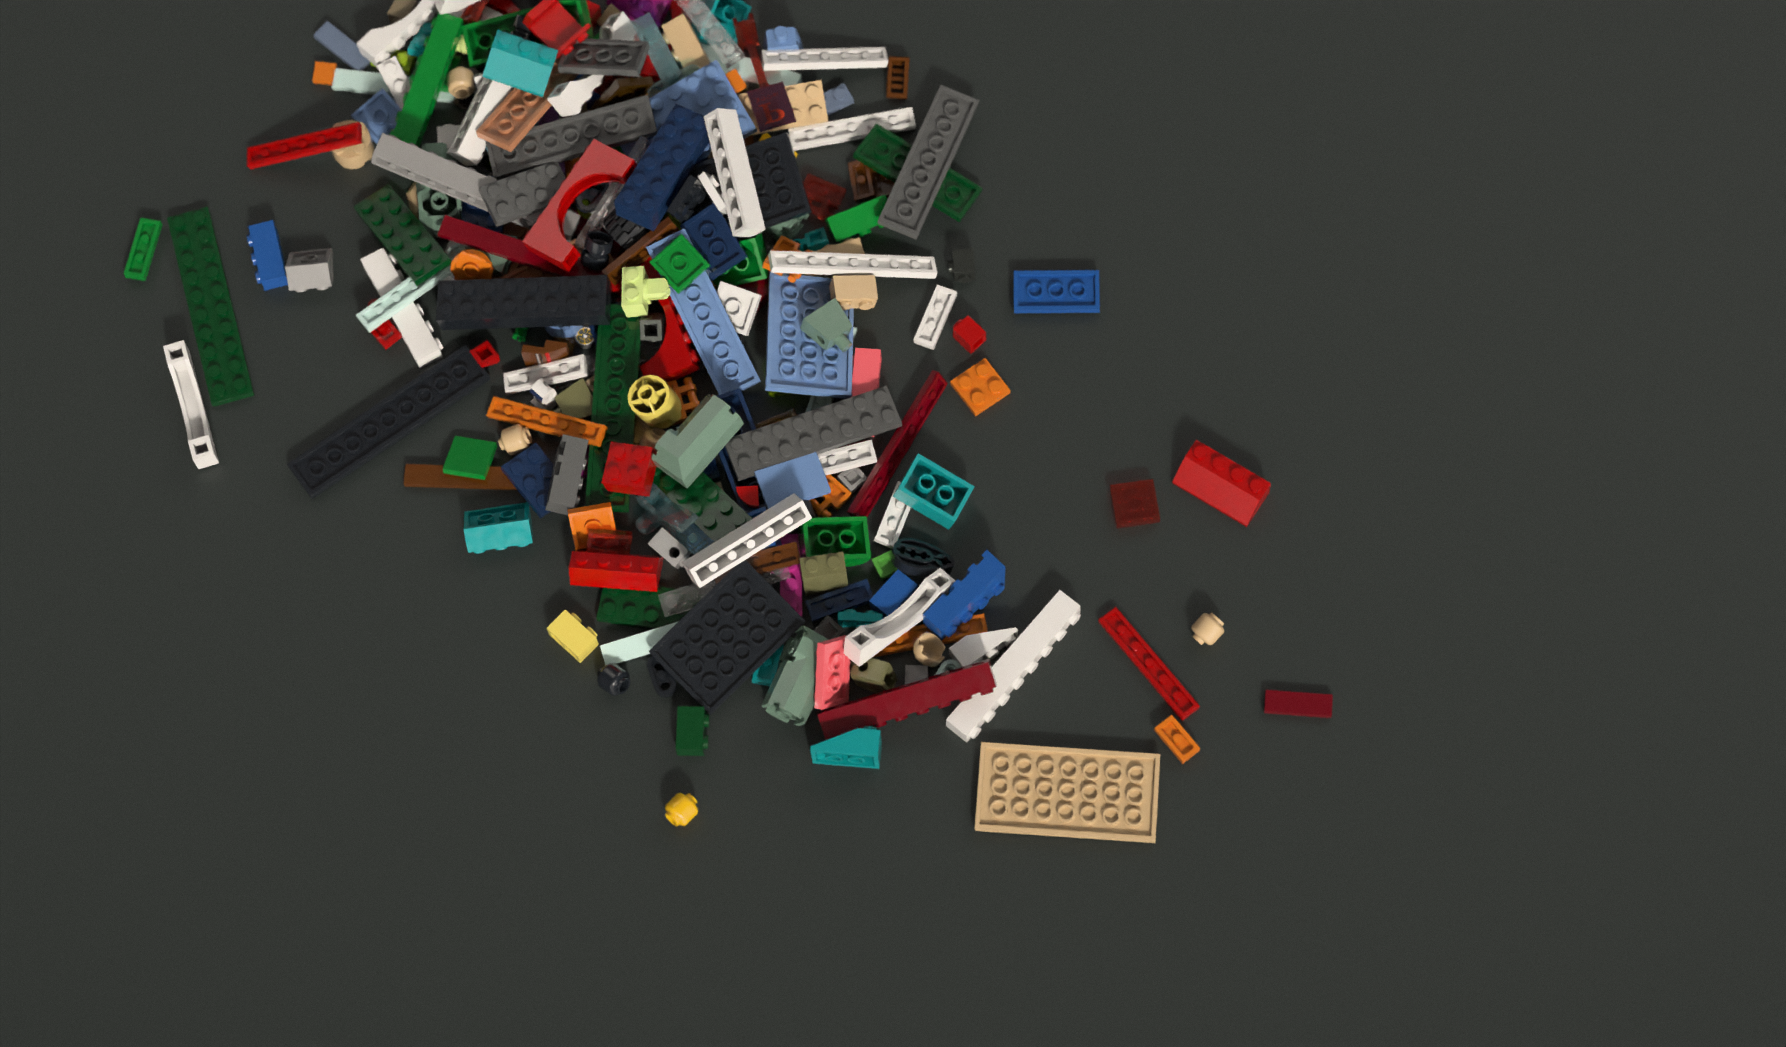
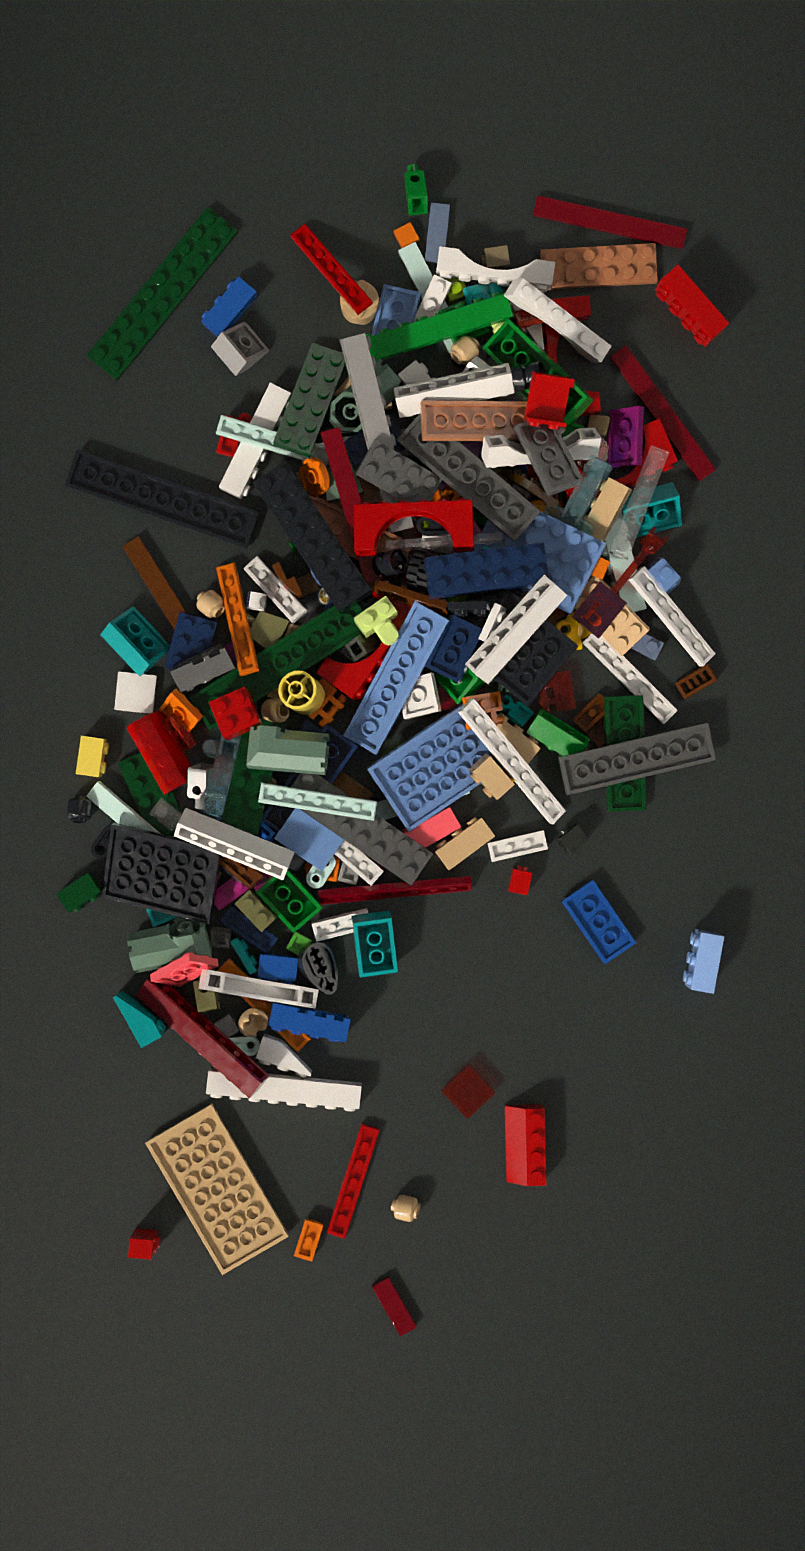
camera: 50 degrees right, 20 degrees up
(142, 249) = (170, 208): green plate -> none
(191, 403) = (57, 363): white arch -> none
(294, 38) = (416, 190): none -> green torso
(469, 457) = (174, 581): green tile -> none
(485, 354) = (260, 532): red slope -> none
(520, 63) = (496, 395): teal slope -> none
(544, 560) = (135, 692): none -> white tile
(679, 263) = (419, 636): green tile -> none
(681, 809) = (17, 927): yellow head -> none
(749, 495) = (276, 815): red tile -> none
(763, 447) = (317, 801): none -> light aqua tile
(828, 326) = (449, 780): sand green torso -> none
(834, 497) = (323, 875): none -> light aqua plate
(898, 359) = (464, 842): none -> tan brick
(980, 387) = (485, 916): orange plate -> none
(1071, 889) = (143, 1244): none -> red brick
(1155, 220) = (703, 961): none -> light blue brick

